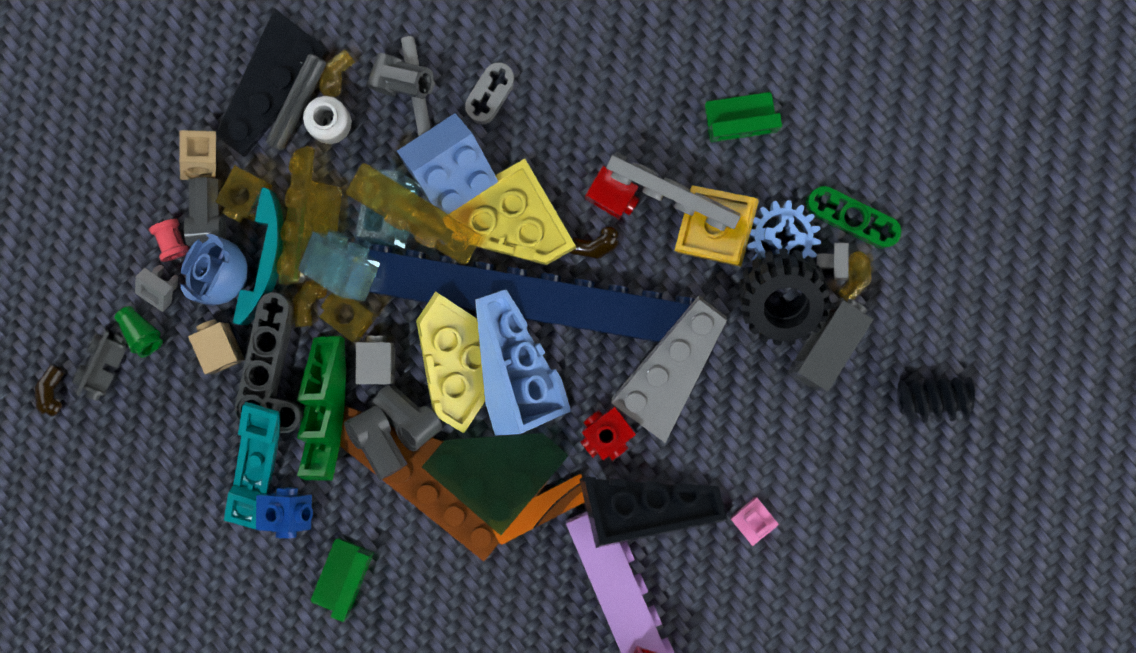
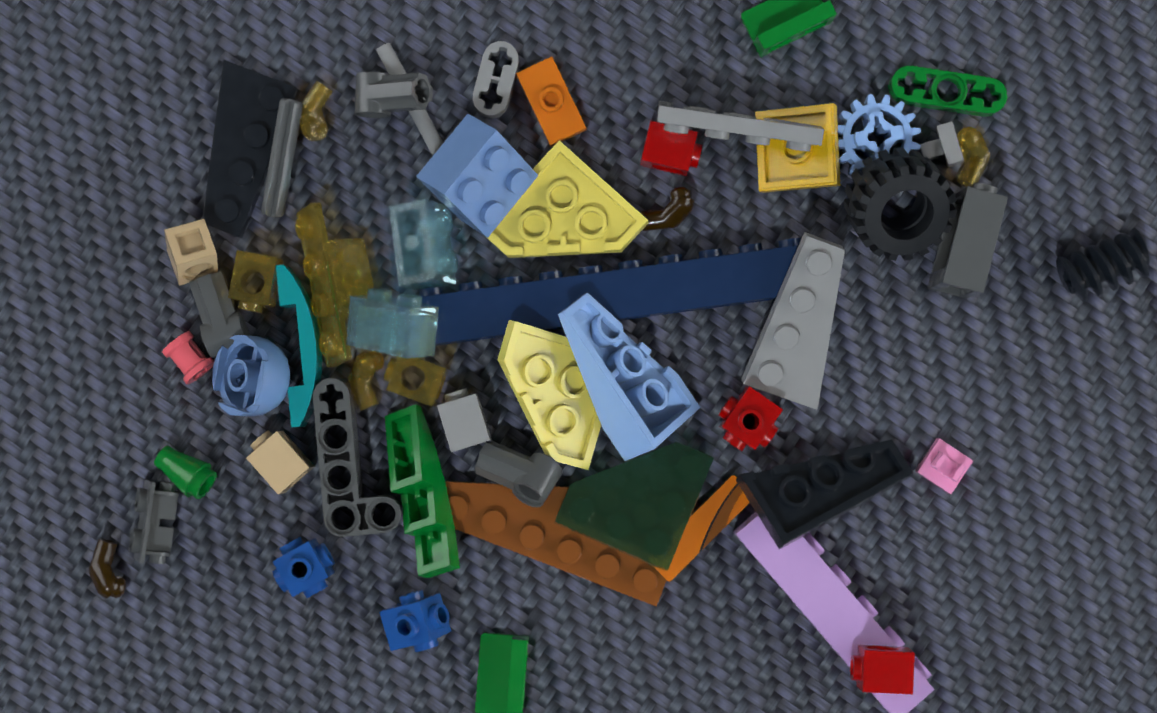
camera: 15 degrees left, 0 degrees up
(154, 289) = (189, 417): light grey tile -> none
(219, 436) = (318, 563): none -> blue brick
(255, 463) = (365, 578): teal slope -> none
(320, 111) = (314, 157): white head -> none
(372, 434) = (486, 501): dark grey piece -> none
(412, 213) = (457, 241): clear yellow bracket -> none
(529, 125) = (551, 101): none -> orange plate

